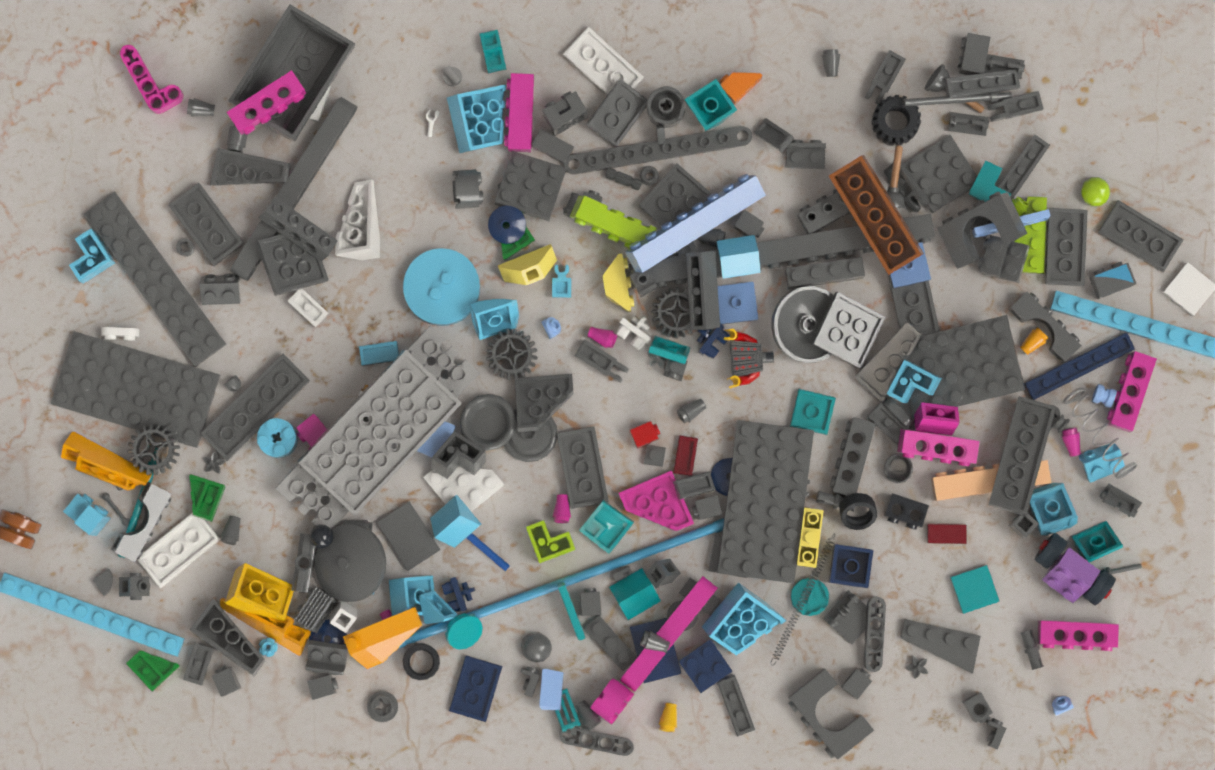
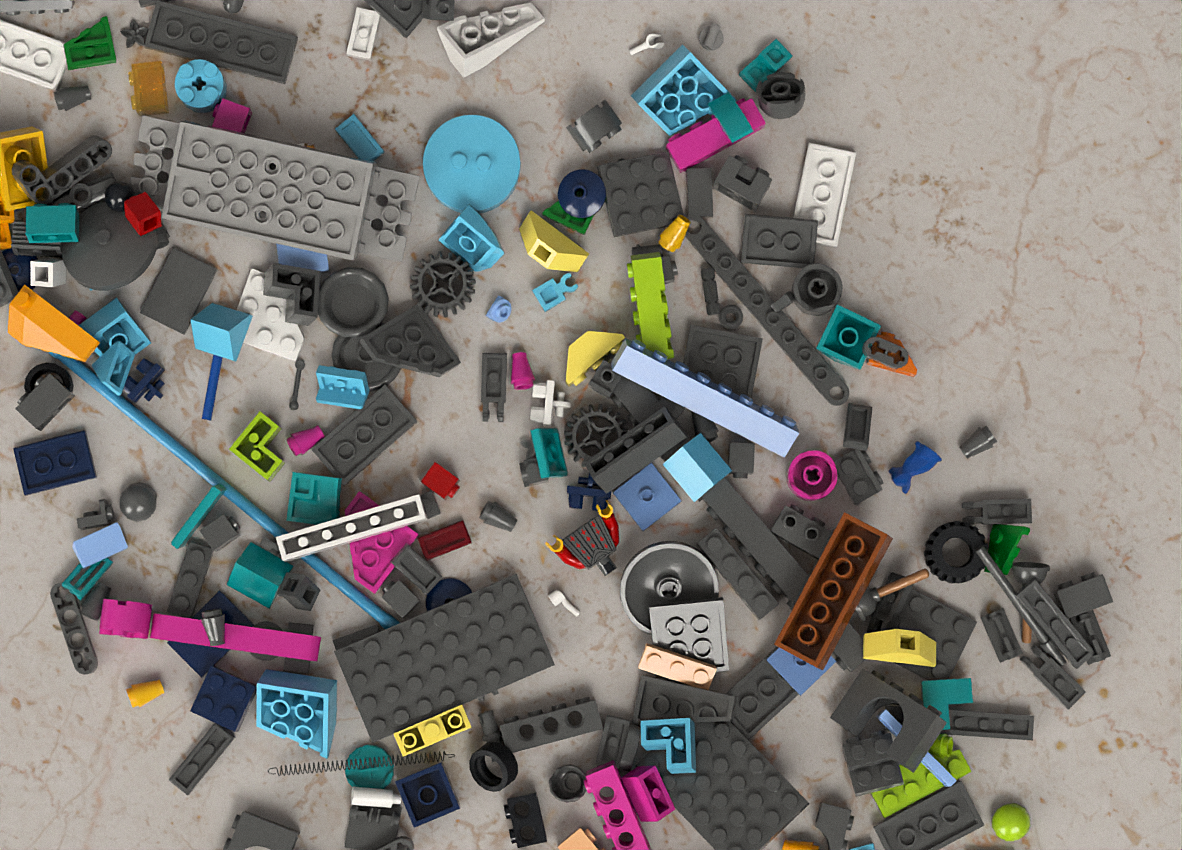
camera: 55 degrees right, 0 degrees up
(258, 474) = (149, 88): none -> clear yellow brick
(279, 538) = (64, 165): none -> dark grey beam
(313, 592) = (52, 223): none -> teal brick
(344, 526) = (142, 213): none -> red brick
(431, 668) = (44, 401): none -> dark grey brick
(463, 631) = (108, 412): teal tile -> none
(508, 483) = (299, 364): none -> dark grey hinge
(516, 94) = (730, 117): none -> teal slope
(520, 52) = (781, 95): none -> dark grey cylinder
(541, 463) = (341, 387): none -> medium azure bracket
(571, 179) = (674, 234): none -> yellow cone
(642, 511) = (351, 528): none -> white brick
(738, 89) = (883, 358): none -> dark grey beam
(768, 403) = (557, 597): none -> white hand
(794, 175) = (811, 461): none -> dark pink brick
(812, 411) = (576, 652): teal tile -> none
(821, 108) = (917, 463): none -> blue animal
(831, 603) = (374, 797): none -> white cylinder
(863, 350) = (676, 667): none -> light nougat plate
(909, 85) = (1004, 544): none -> green wing
(938, 194) = (900, 647): none -> light yellow slope

